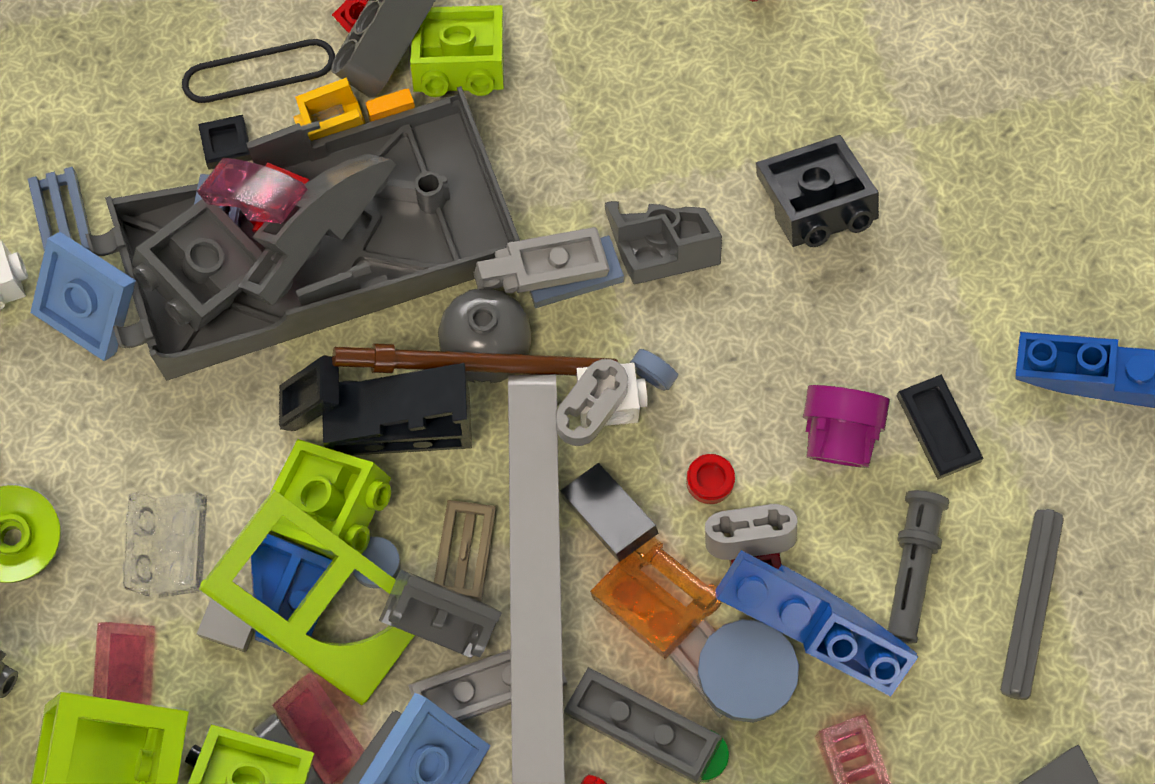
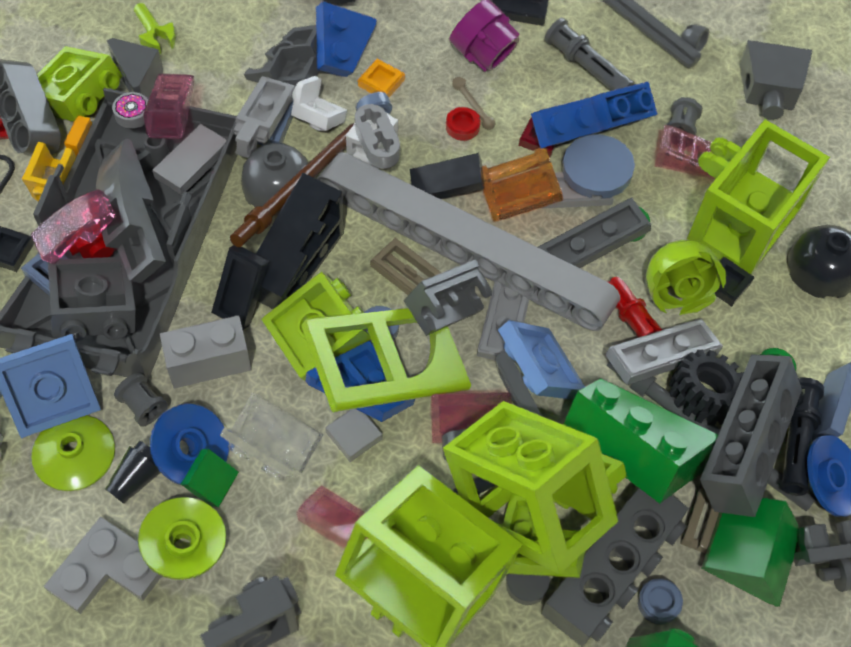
camera: 60 degrees left, 10 degrees down
(56, 440) = (133, 472): none -> black cone
(58, 385) = (77, 467): none -> lime dish
(89, 515) = (209, 478): none -> green tile
(100, 492) = (192, 425): none -> blue dish
(133, 390) = (140, 399): none -> dark grey bush
(220, 413) = (205, 351): none -> light grey brick
(440, 233) = (190, 159): none -> light grey tile
(444, 135) = (129, 109): none -> tile
(458, 185) = (168, 110): none -> clear pink slope
(521, 96) = (137, 65): none -> dark grey slope
(598, 70) = (153, 29): none -> lime bar
(605, 309) = (314, 110): none -> white bracket
(707, 350) = (381, 78): none -> light orange tile
(723, 270) = (341, 38): none -> blue wing
(751, 531) = (512, 119): light grey beam -> none
(768, 438) = (460, 84): none -> dark tan hinge
(902, 733) = (687, 121): none -> dark grey bush
(1053, 675) = (696, 36): none -> dark grey hinge

